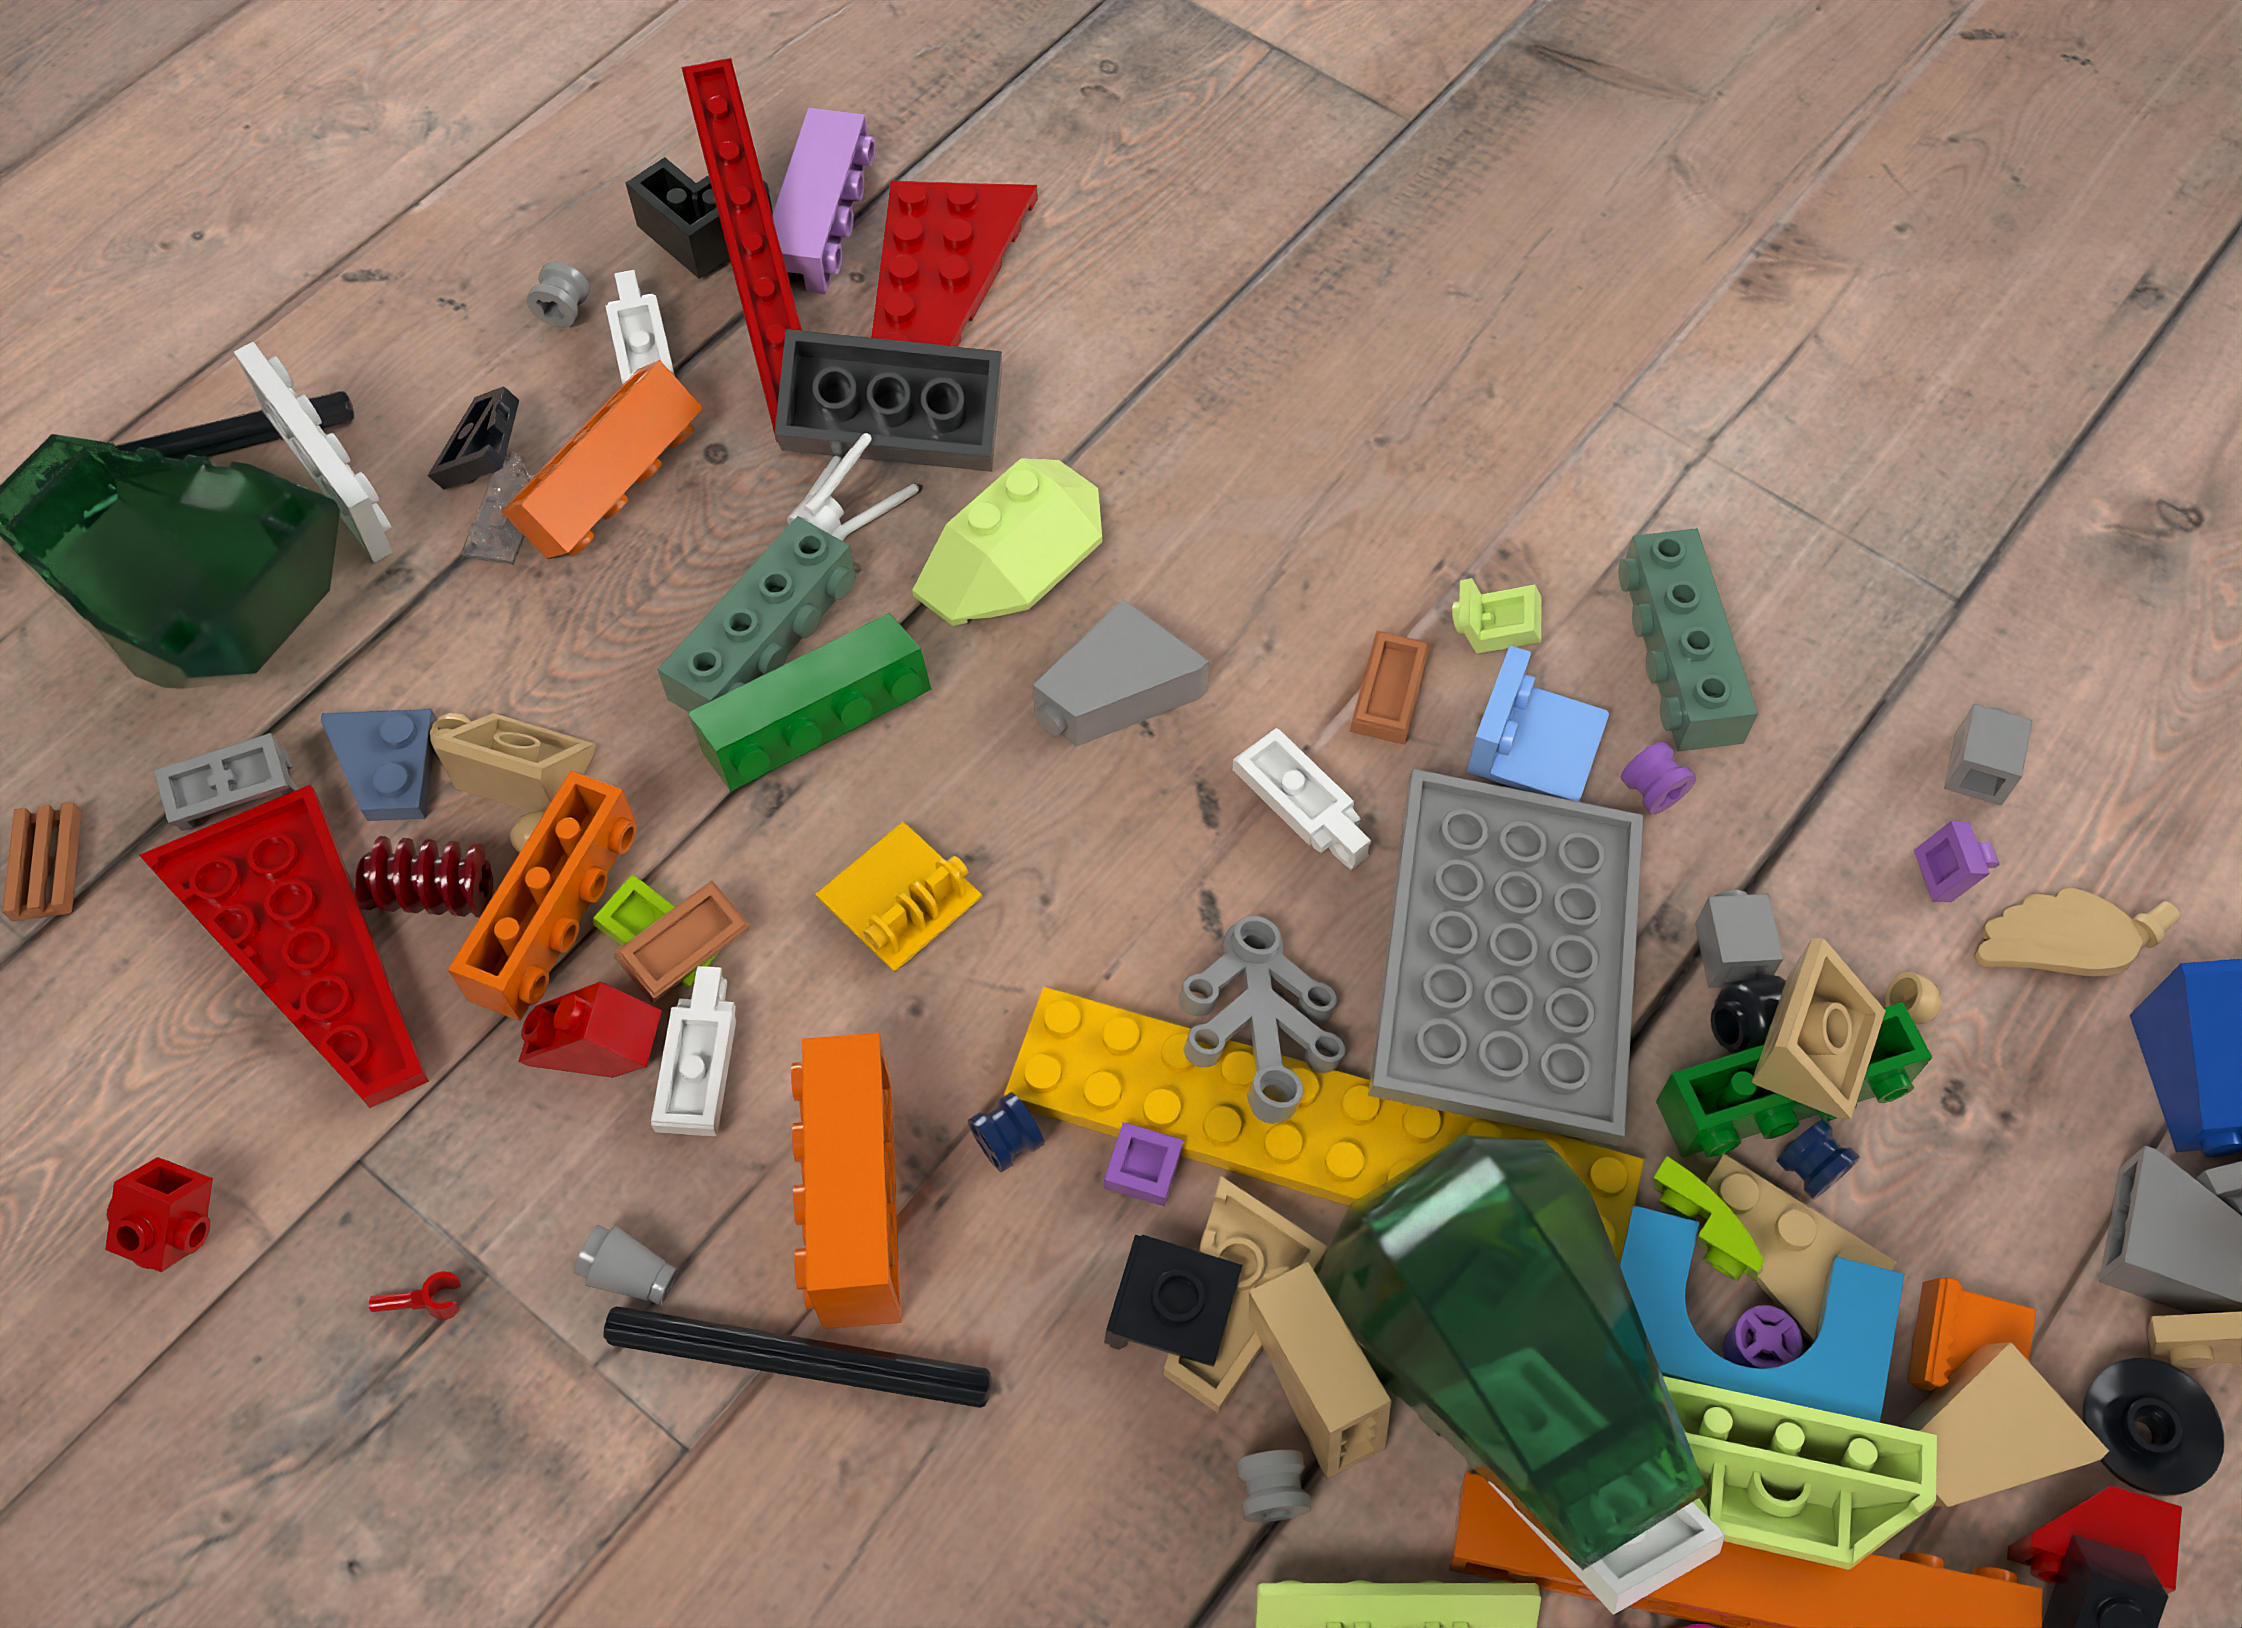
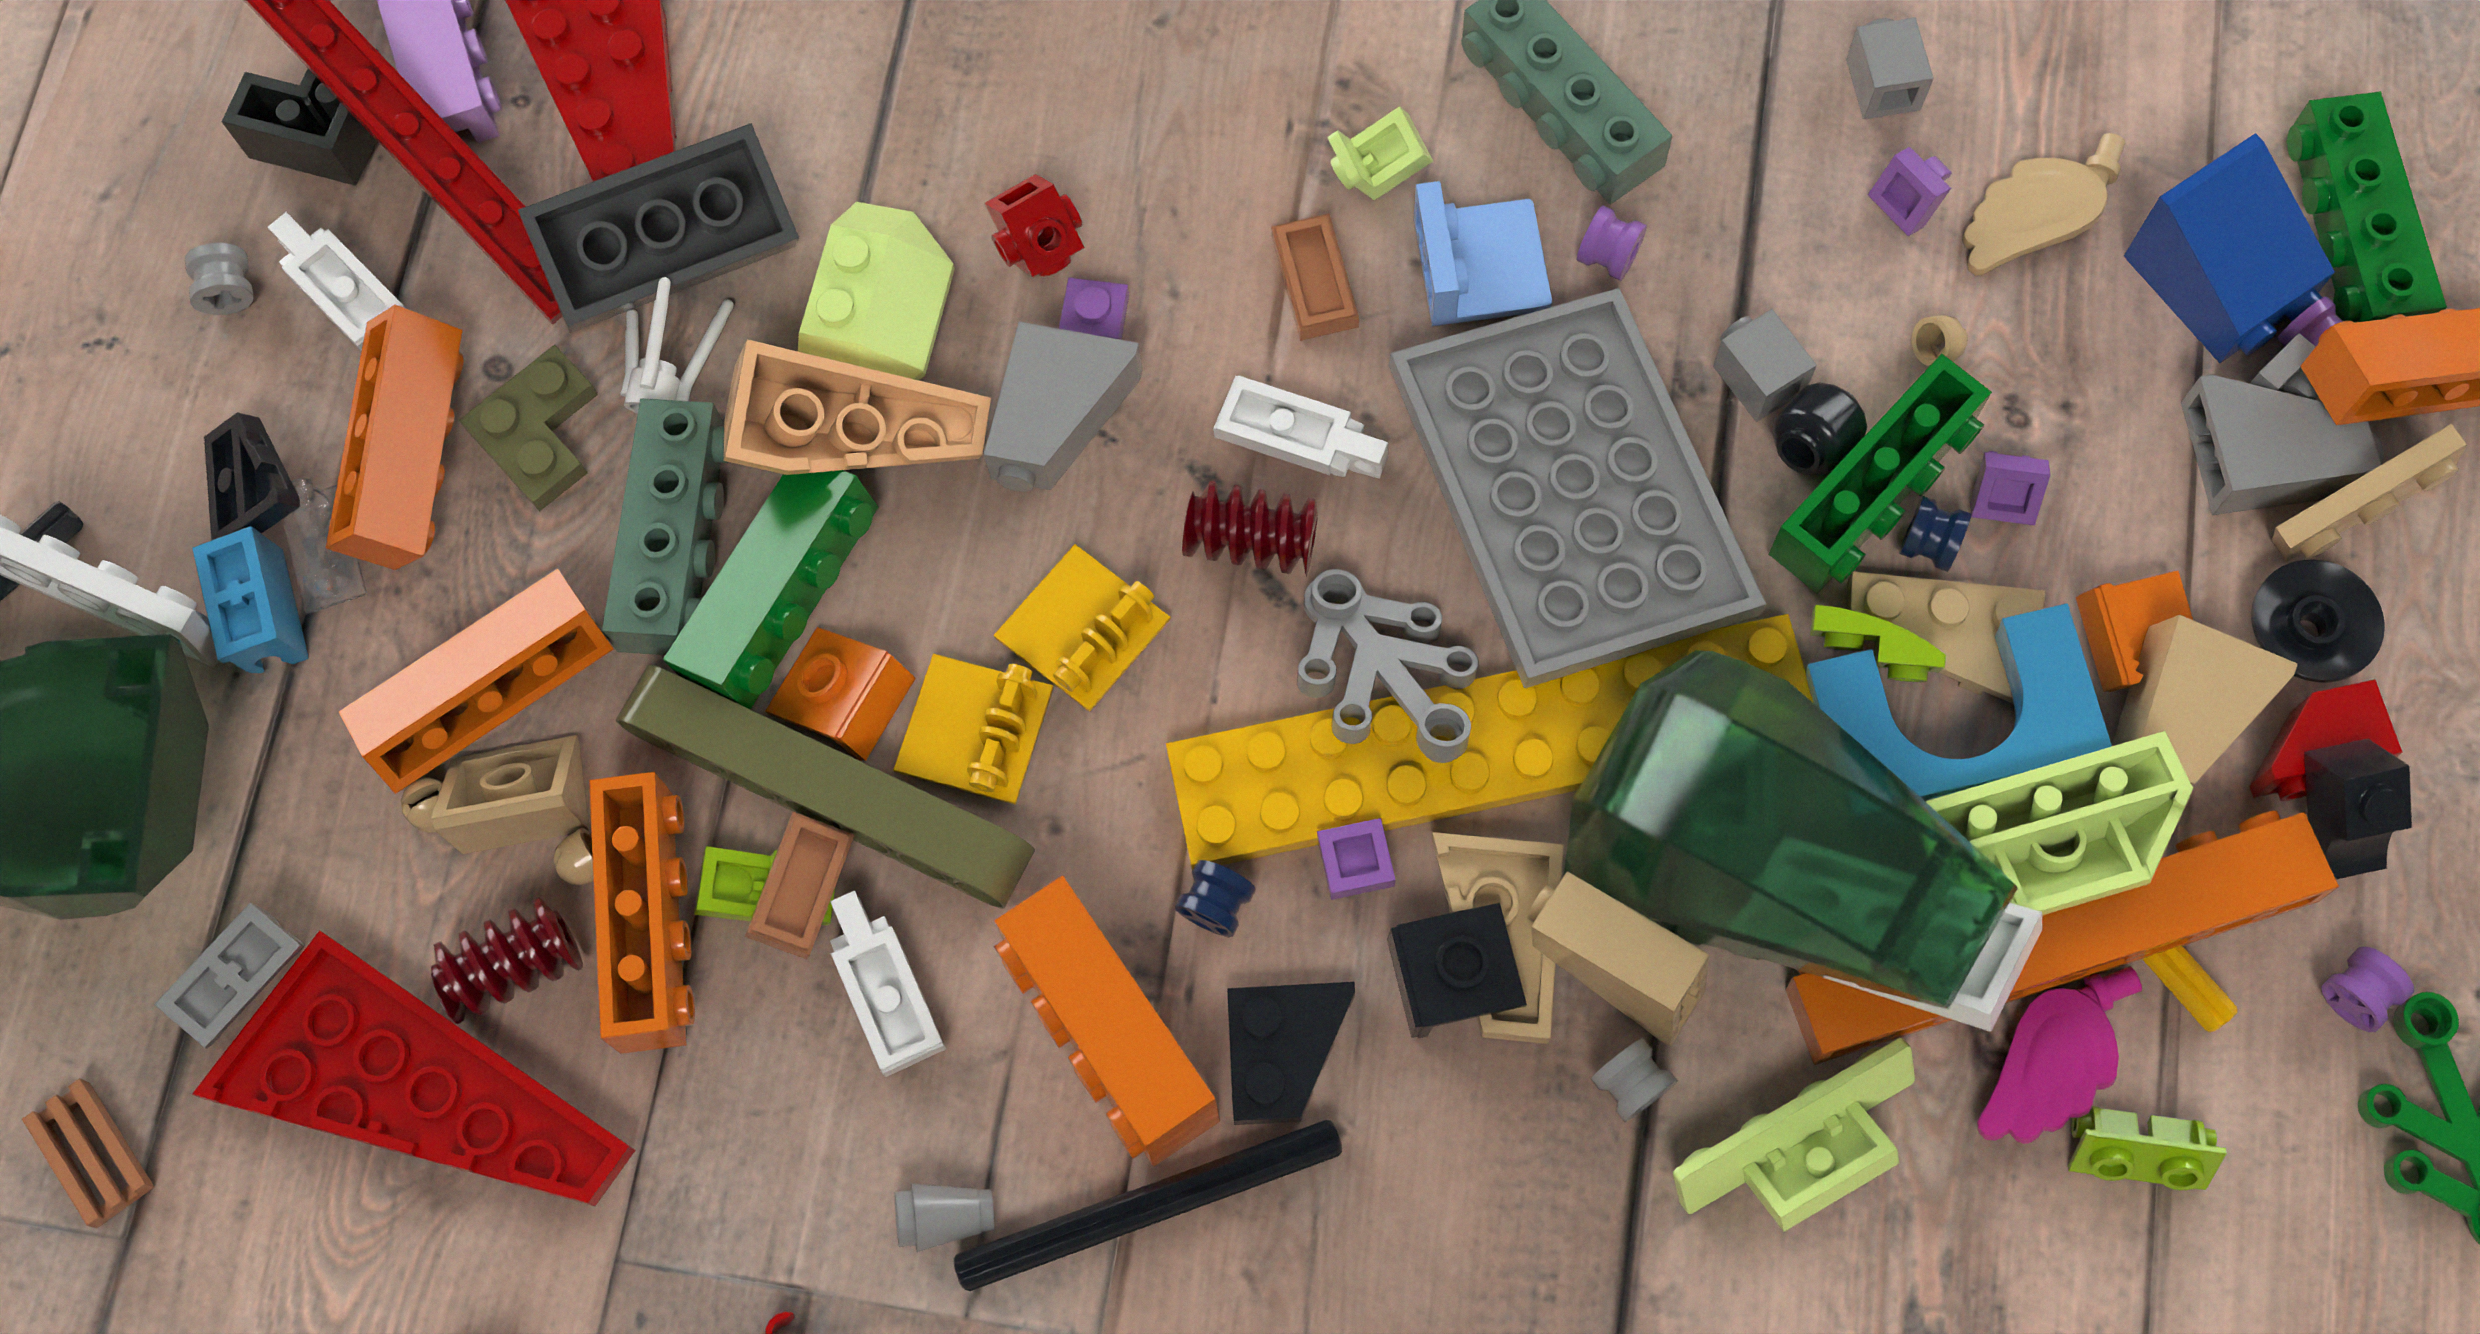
camera: 25 degrees left, 10 degrees up
(385, 759) = (372, 863): sand blue wing -> none
(425, 524) = (249, 600): none -> dark azure hinge
(542, 660) = (475, 681): none -> orange brick
(590, 1032) = (766, 1020): red slope -> none
(704, 495) = (519, 421): none -> olive plate
(756, 881) = (826, 786): none -> olive beam
(815, 815) = (842, 691): none -> orange piece
(931, 595) = (826, 415): none -> light nougat wedge
(988, 1286) = (1281, 1046): none -> black wing
(1034, 862) = (1083, 627): none -> yellow hinge
(1176, 520) = (1035, 227): none -> red brick
(1197, 624) = (1095, 307): none -> medium lavender plate
(1214, 853) = (1250, 528): none -> dark red piece
(1771, 1333) = (1980, 713): medium lavender wheel -> none
(1820, 1034) = (1890, 424): tan slope -> none
(1910, 1155) = (2009, 488): none -> medium lavender tile

